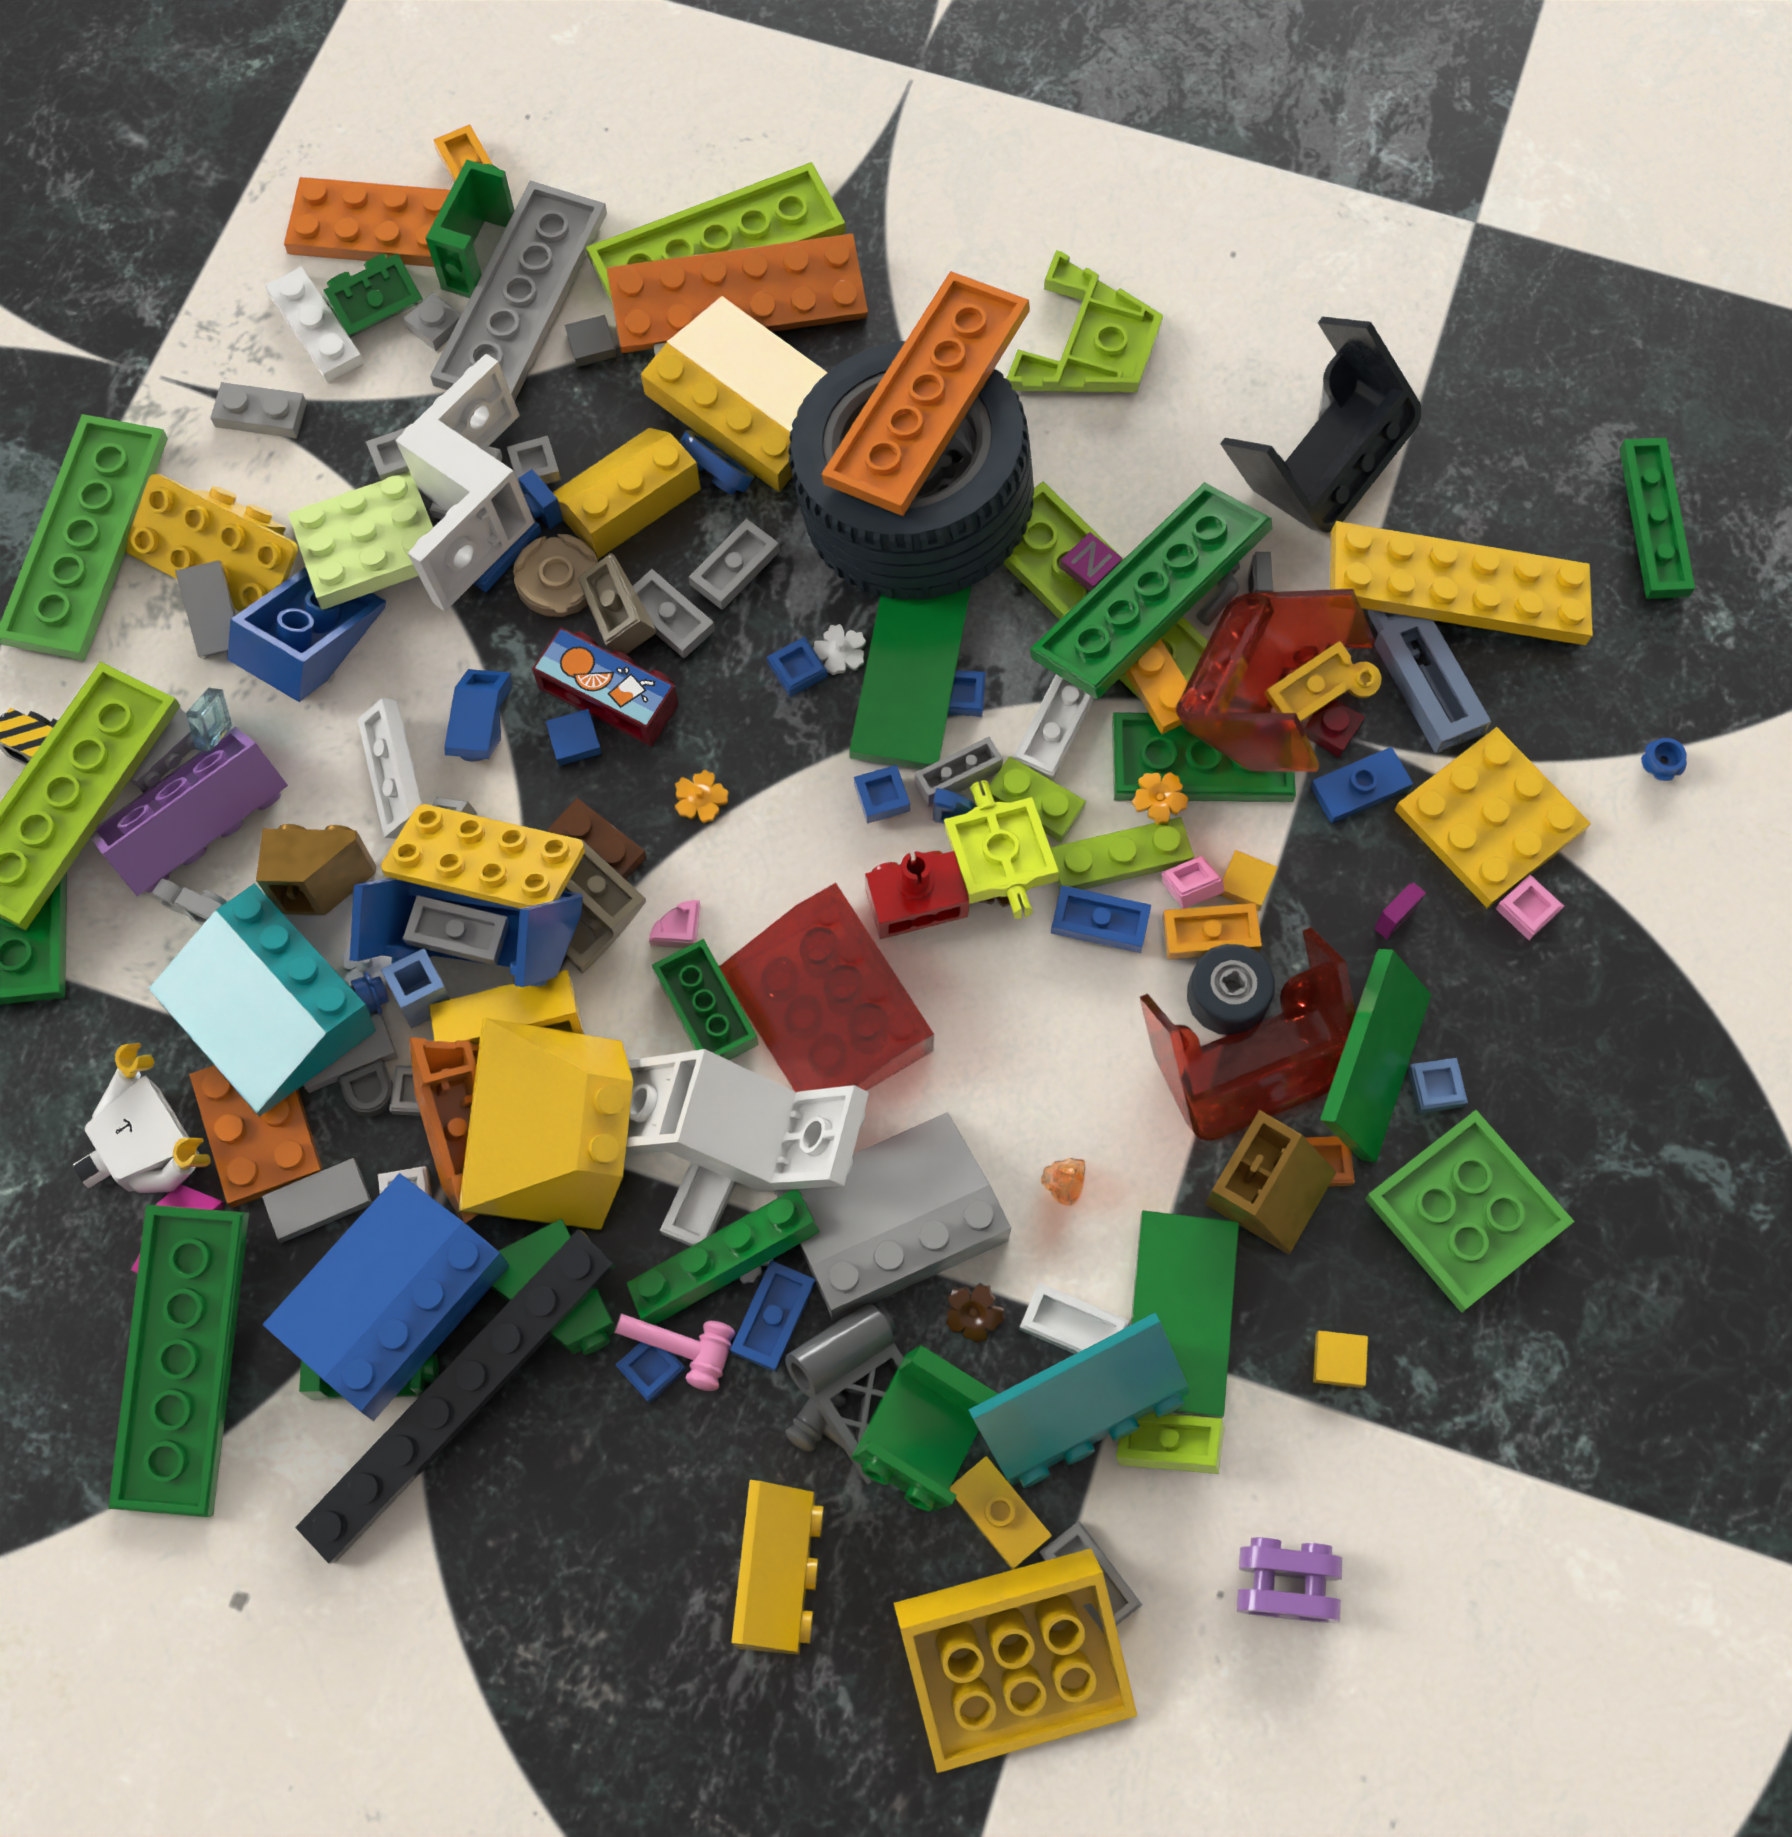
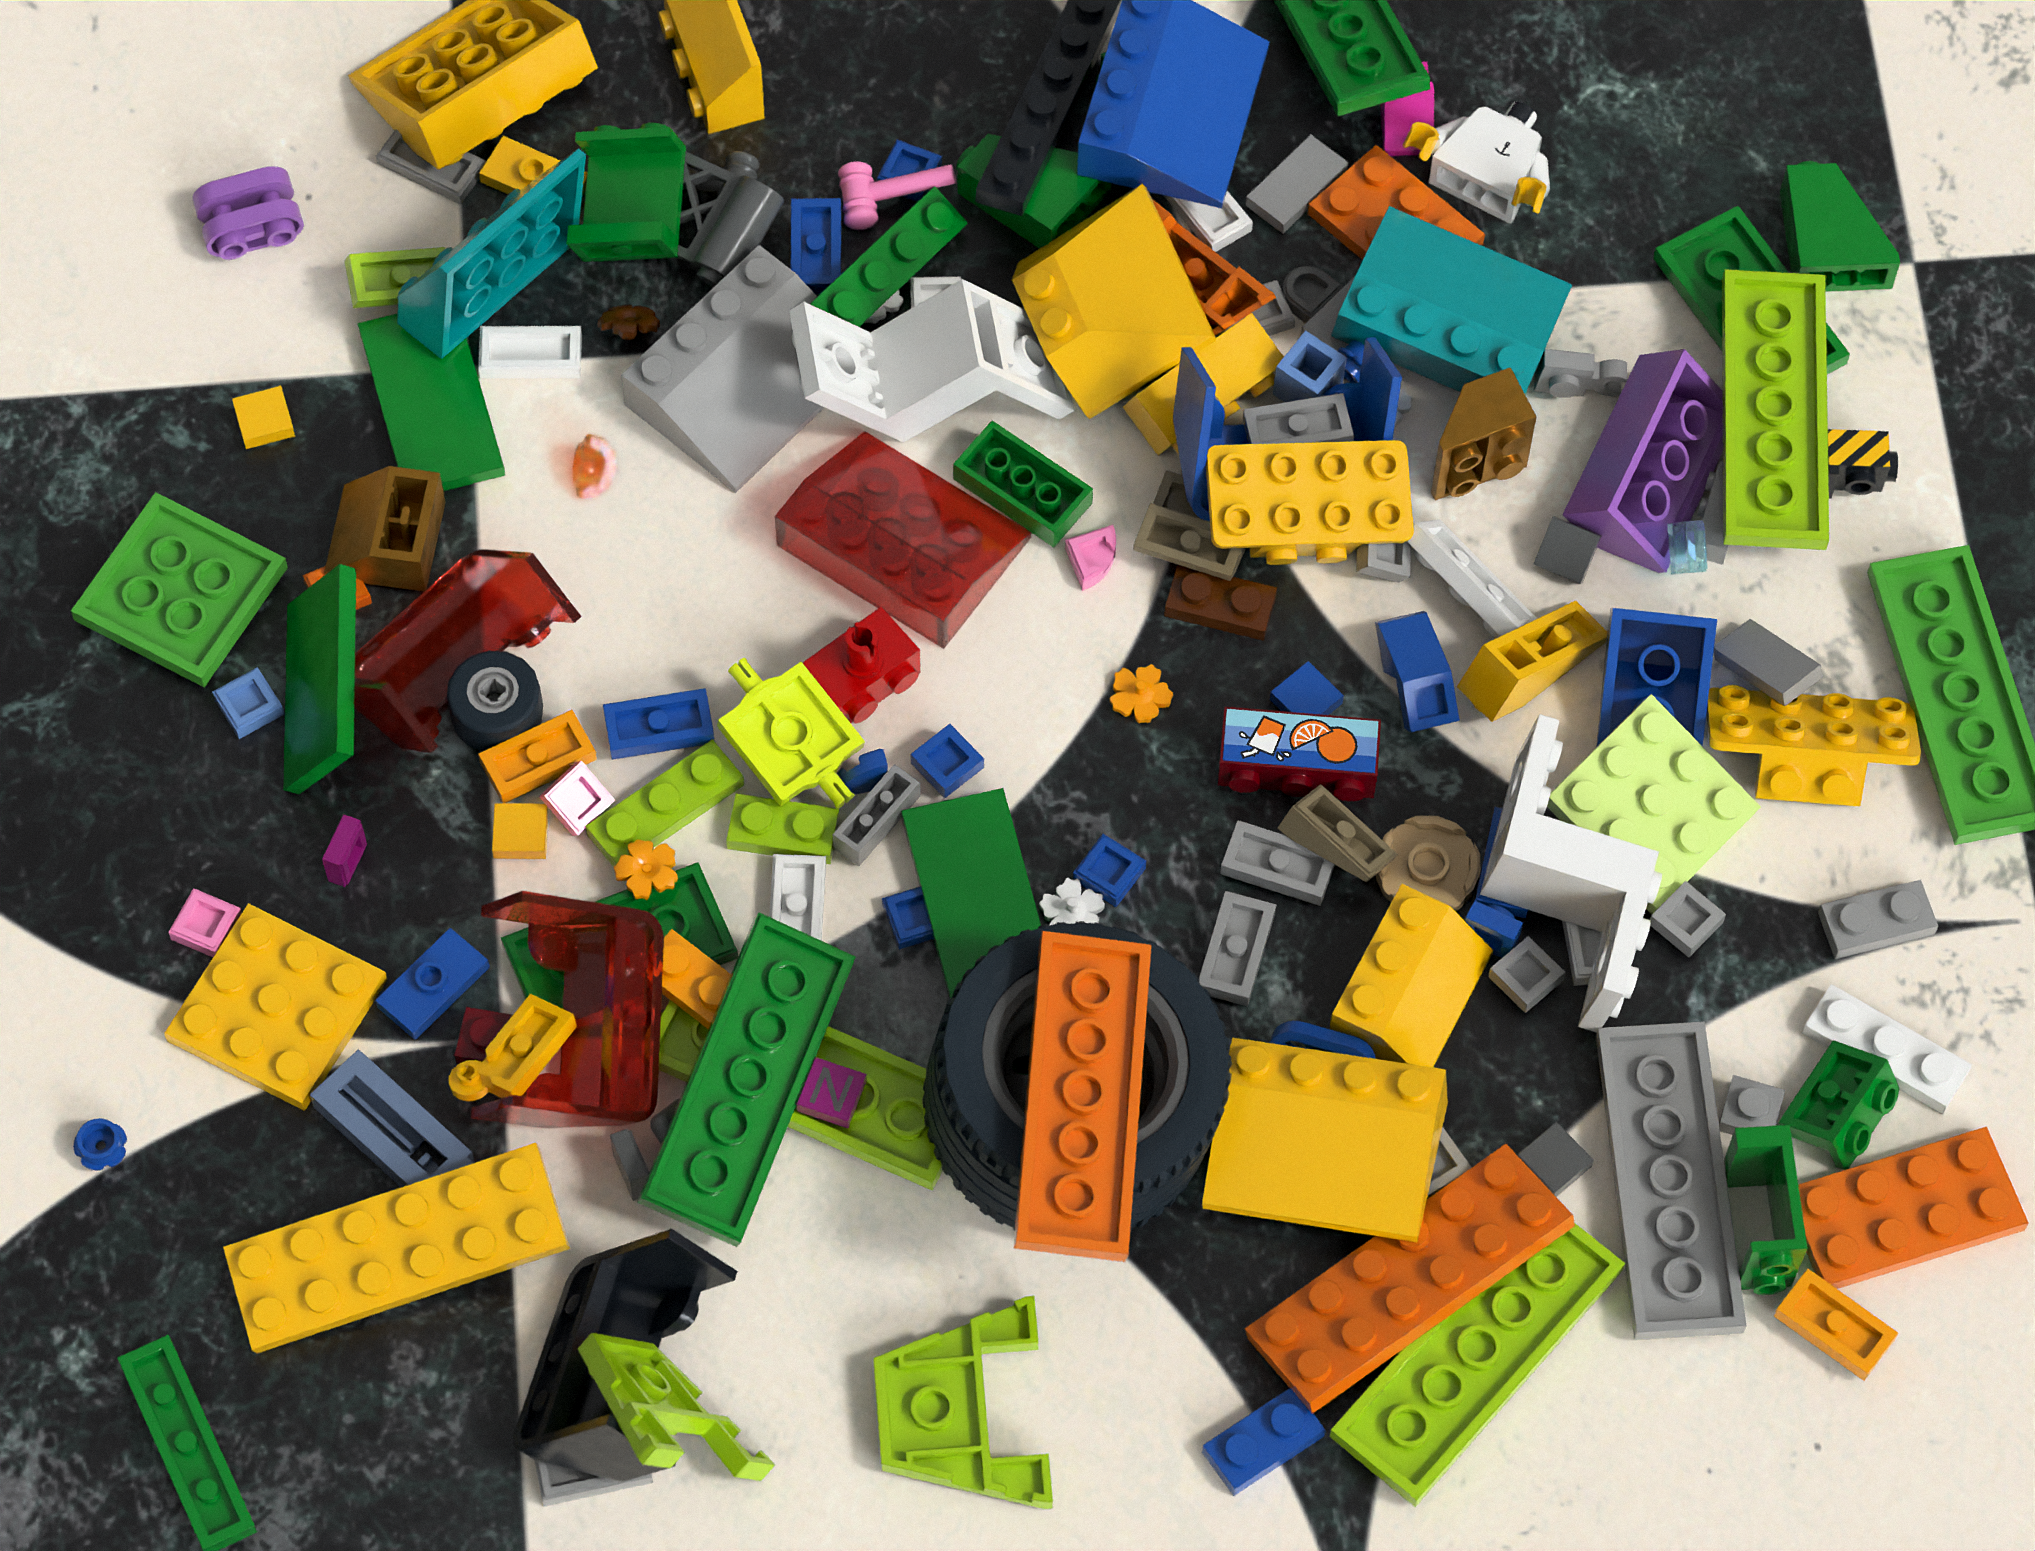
camera: 155 degrees right, 5 degrees down
(301, 765) = (1567, 549): none -> dark grey tile
(408, 672) = (1530, 659): none -> yellow slope
(894, 246) = (1262, 1441): none -> blue plate
(1323, 385) = (658, 1401): none -> lime wing

